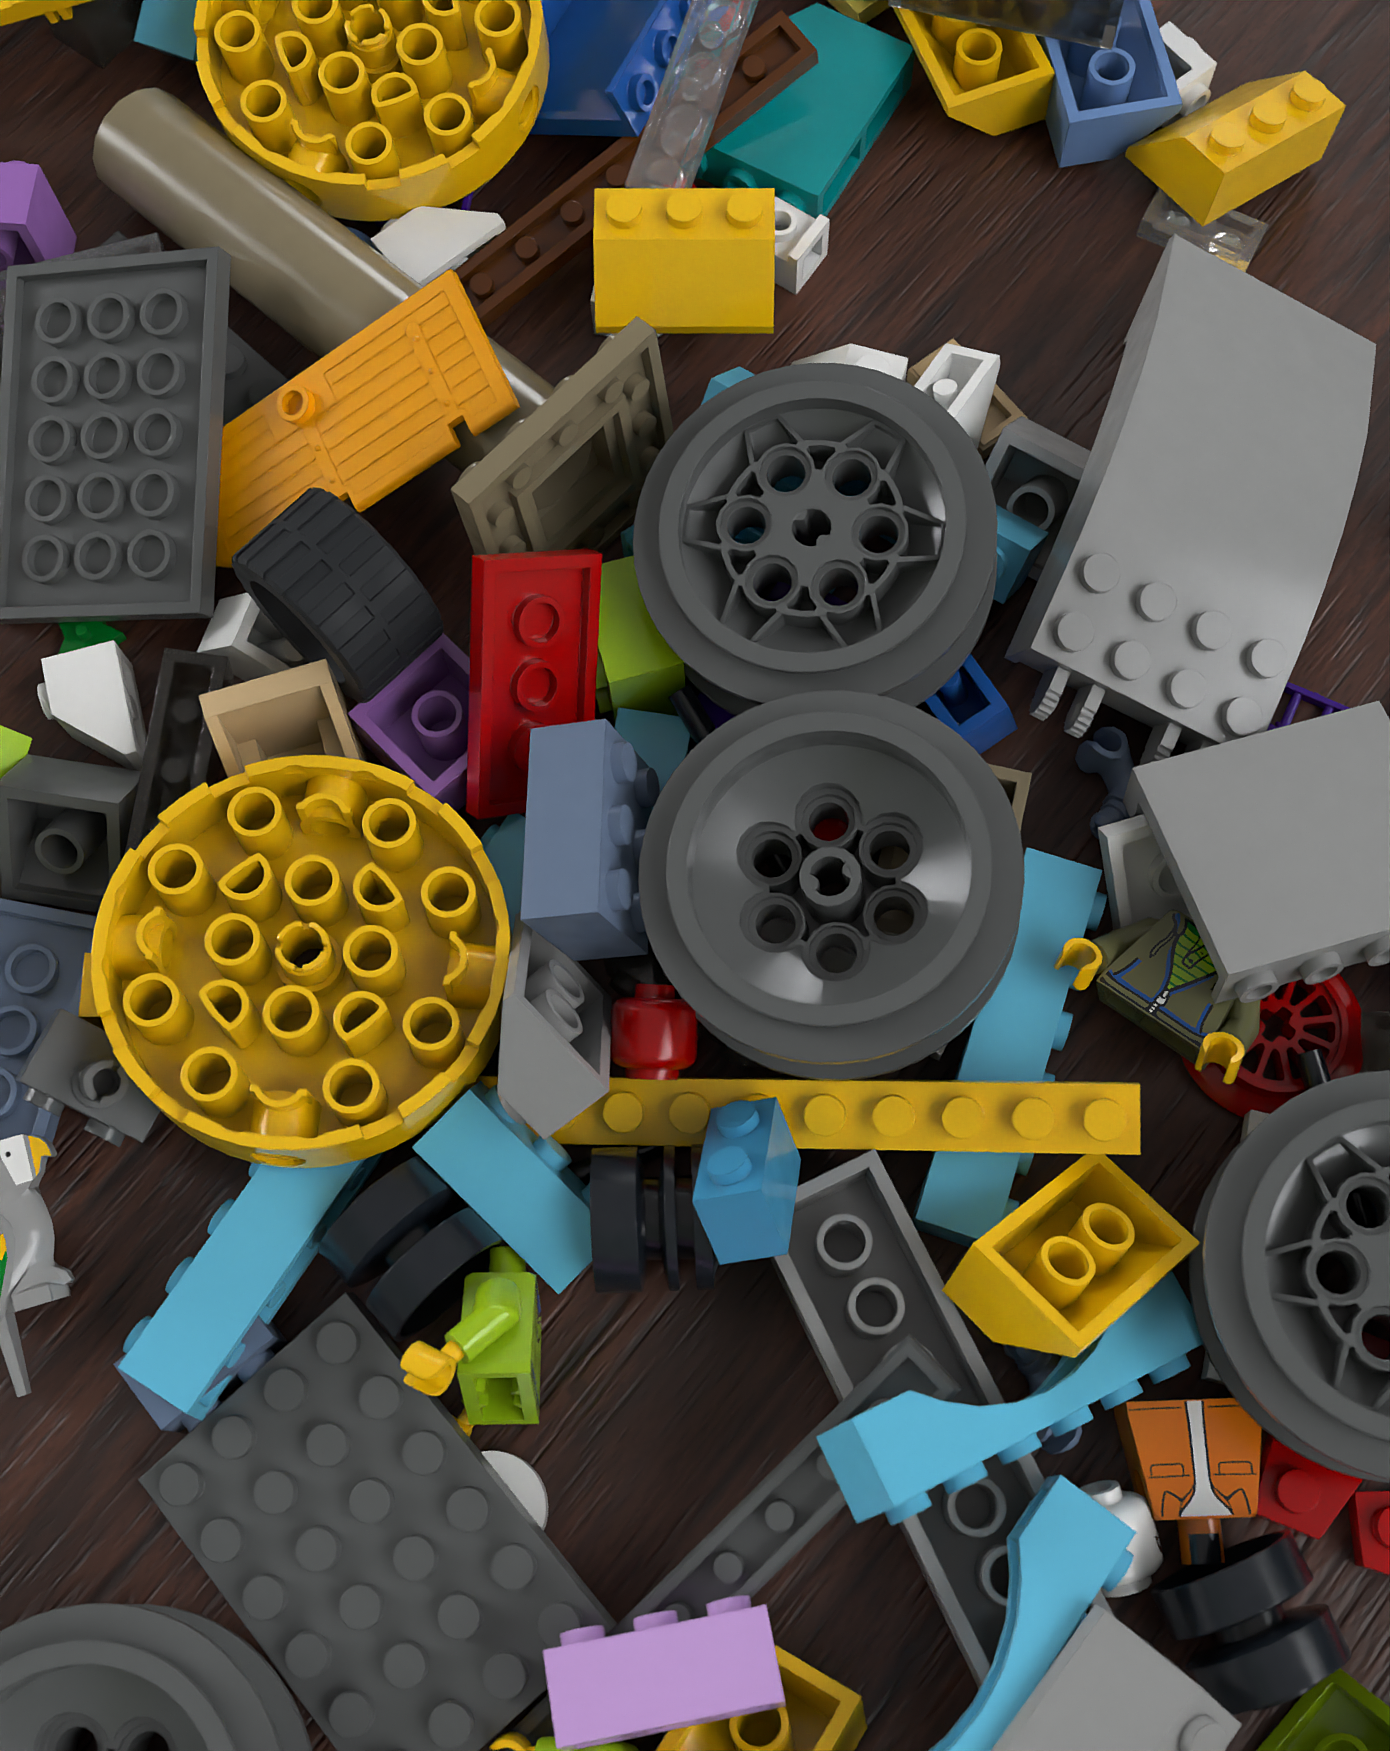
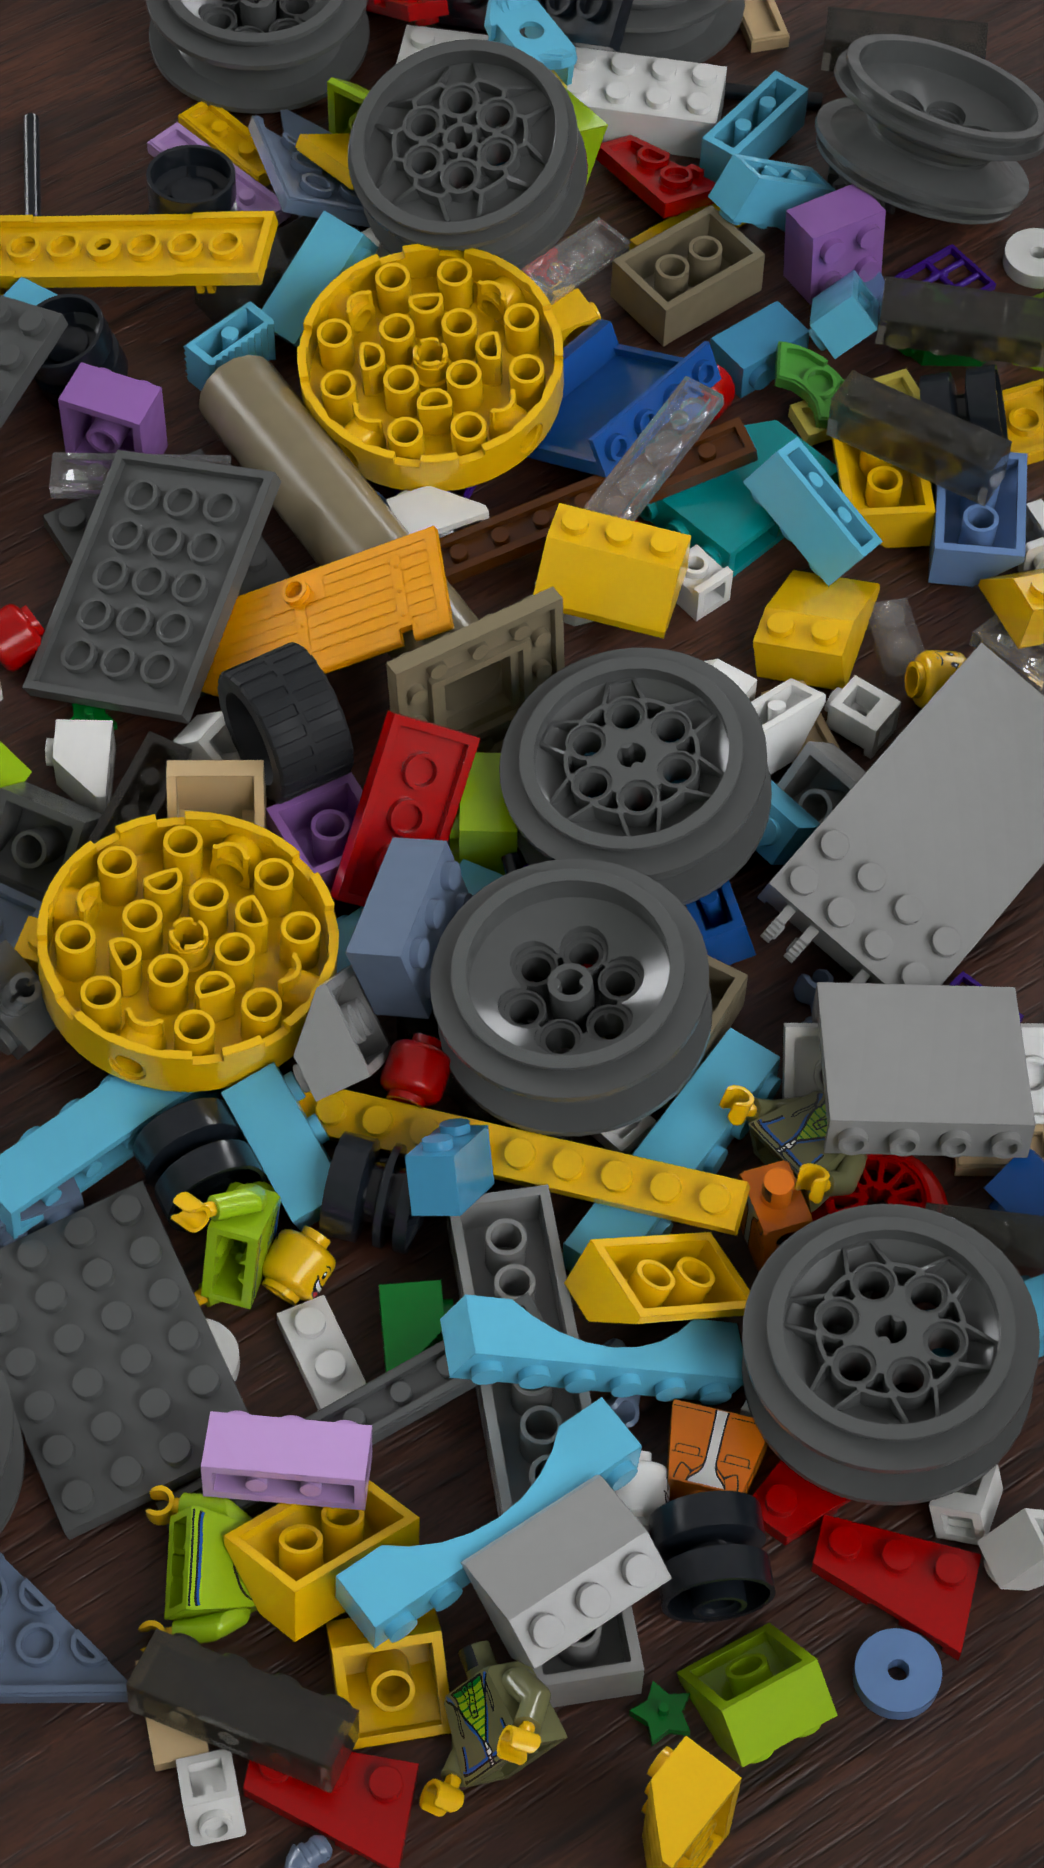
camera: 10 degrees right, 15 degrees down
(118, 65) = (238, 334): none -> medium azure brick
(581, 1342) = (298, 1265): none -> yellow head
(656, 1461) = (320, 1351): none -> white plate
(756, 1391) = (410, 1319): none -> green slope
(907, 113) = (812, 511): none -> medium azure brick
(947, 267) = (814, 630): none -> yellow slope
(1042, 365) = (863, 714): none -> white brick
(1046, 255) = (894, 638): none -> clear plate
(1114, 292) = (930, 673): none -> yellow head
(1177, 1097) = (771, 1209): none -> orange torso

